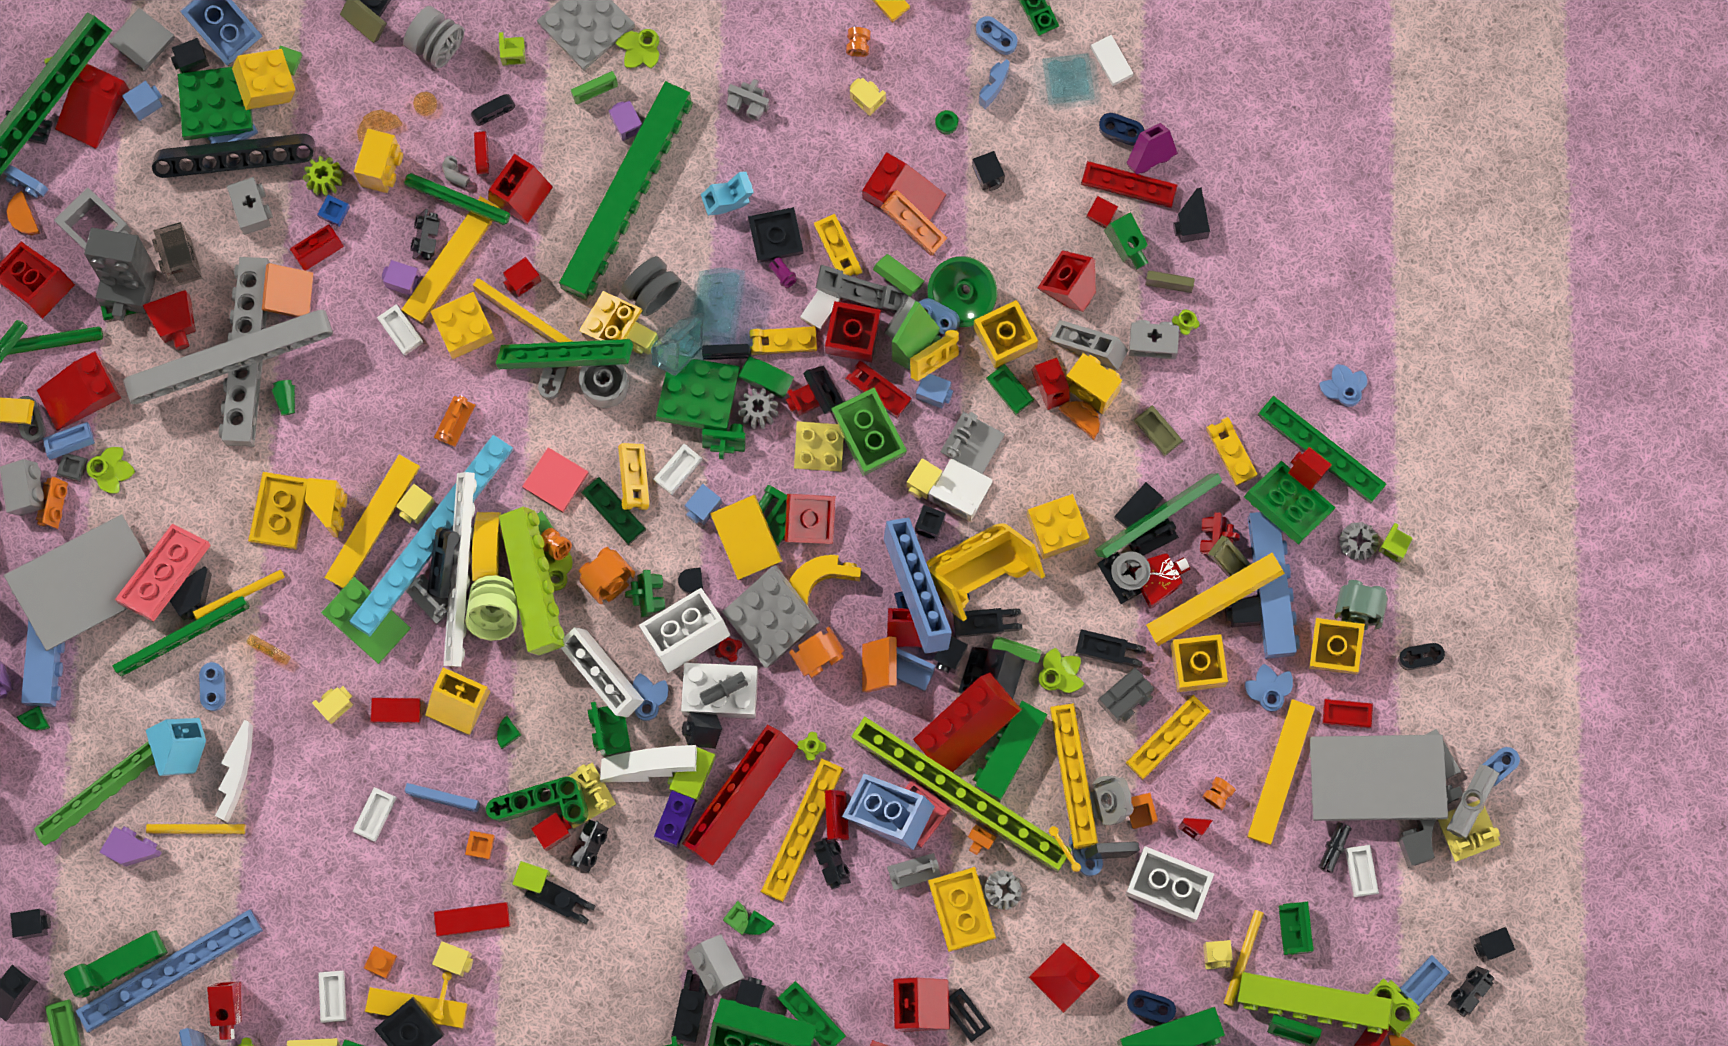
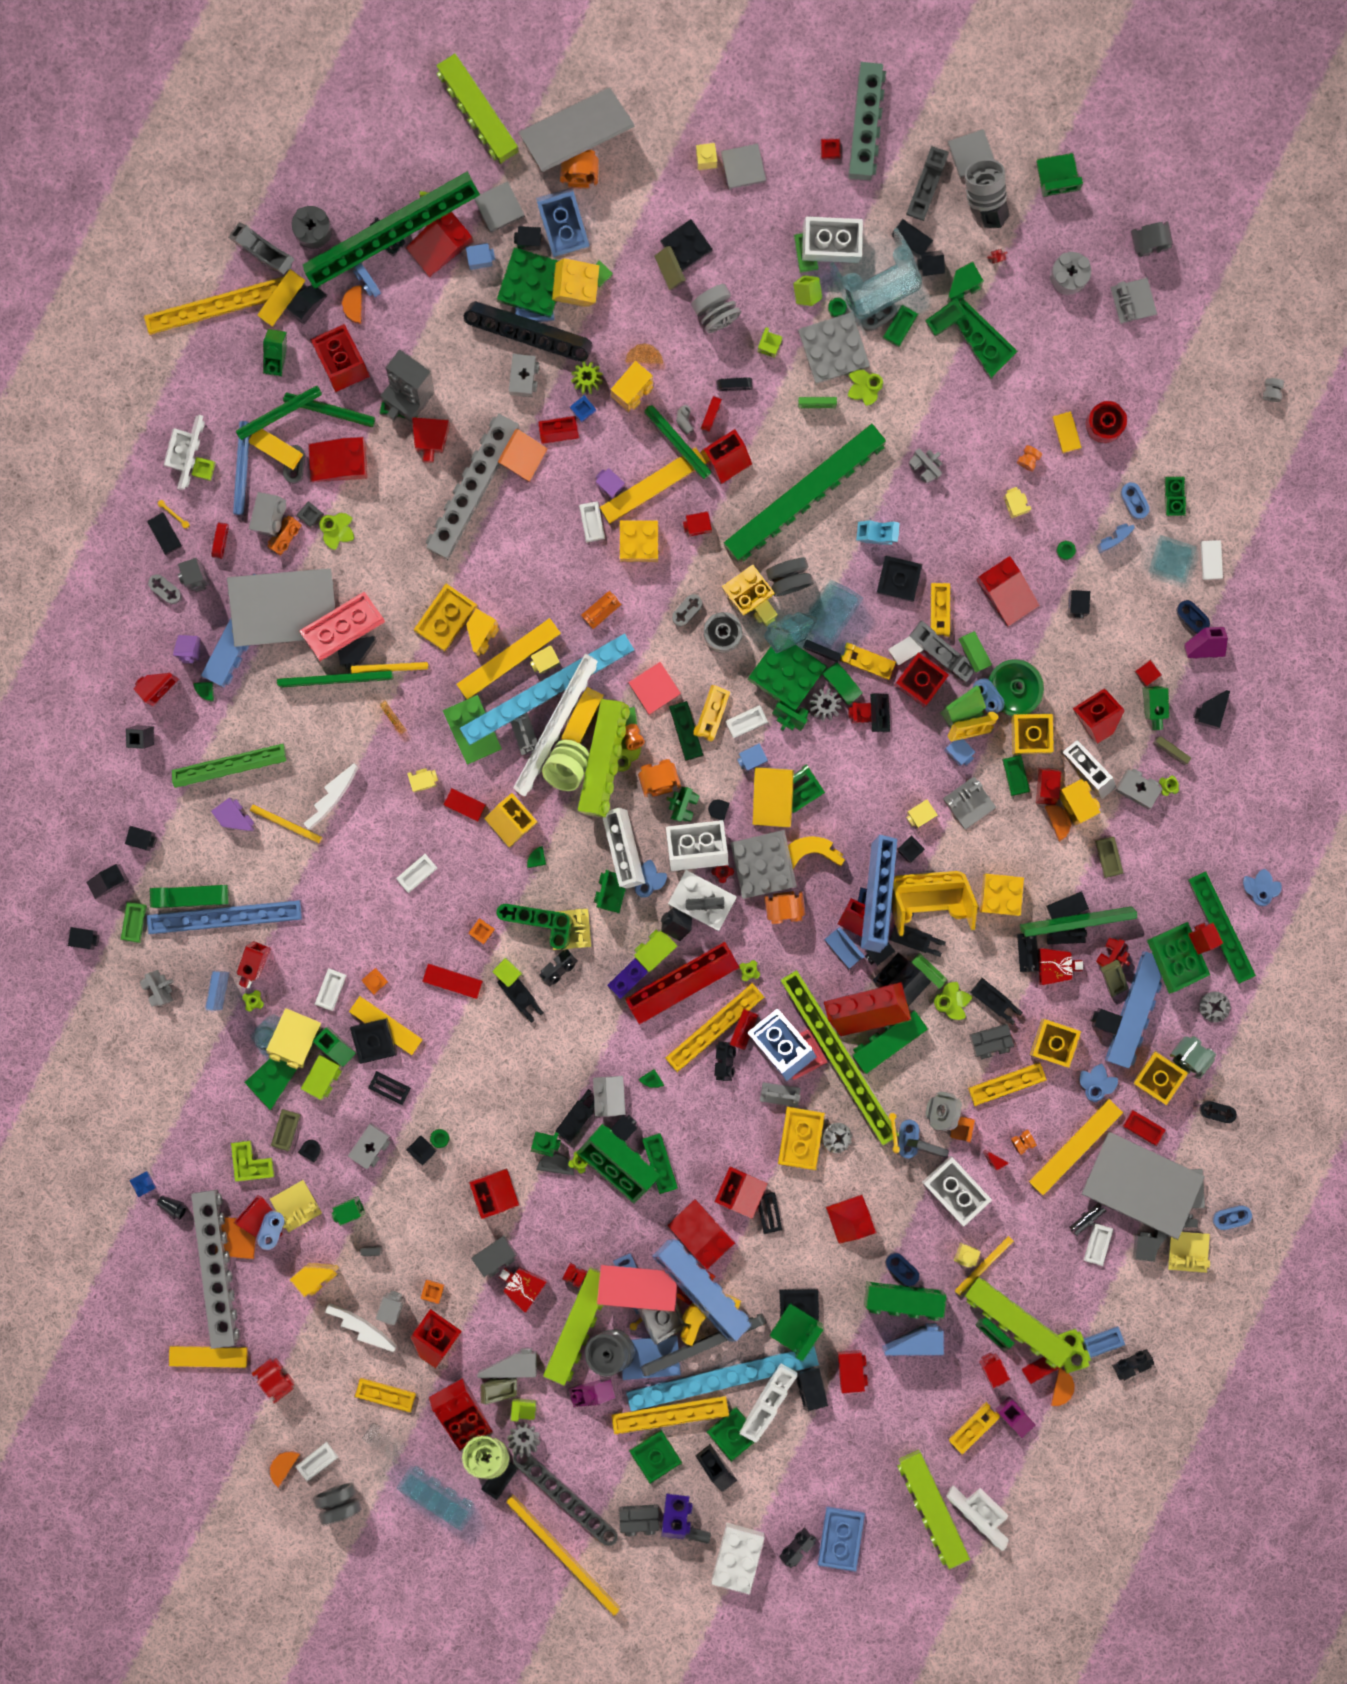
camera: 25 degrees right, 10 degrees up
(68, 440) = (315, 494): medium blue tile -> none
(79, 208) = (397, 319): light grey window -> none
(176, 745) = (298, 760): medium azure slope -> none
(177, 254) = (454, 390): clear smoke brick -> none
(212, 686) = (343, 726): medium blue plate -> none
(228, 357) = (457, 487): light grey beam -> none
(285, 396) = (486, 532): green cone -> none
(425, 103) = (686, 355): clear yellow tile -> none
(425, 226) = (644, 451): black hinge -> none
(438, 1014) = (399, 1038): yellow hinge -> none
(442, 562) = (545, 714): black plate -> none
(442, 797) = (469, 884): medium blue tile -> none
(453, 959) = (426, 1004): light yellow brick -> none
(519, 312) = (691, 562): yellow tile -> none
(552, 831) = (536, 945): red brick -> none
(564, 354) = (703, 600): green plate -> none
(625, 119) = (828, 438): medium lavender brick -> none
(647, 763) = (627, 930): white slope -> none
(737, 918) = (640, 1069): bright green tile -> none
(785, 276) = (891, 610): magenta pin -> none
(810, 518) = (825, 805): plate -> none
(818, 446) = (856, 753): light yellow hinge -> none
(869, 431) = (898, 761): bright green slope -> none
(879, 664) = (825, 936): orange tile -> none
(892, 397) = (920, 731): red plate -> none
(899, 317) = (961, 685): light grey beam -> none
(913, 222) = (1005, 618): orange tile -> none
(960, 489) = (944, 833): white bracket -> none
(981, 839) = (838, 1094): orange tile -> none
(1073, 776) = (926, 1081): yellow tile -> none
(1129, 184) = (1178, 661): red tile -> none
(1134, 560) = (1044, 947): light grey gear -> none
(1215, 599) = (1089, 1002): yellow tile -> none
(1232, 452) = (1155, 898): yellow plate -> none
(1296, 928) = (1031, 1263): green hinge -> none
(1395, 544) = (1240, 1022): lime panel -> none
(1466, 815) = (1212, 1227): light grey piece -> none
(1493, 944) = (1165, 1341): black brick -> none

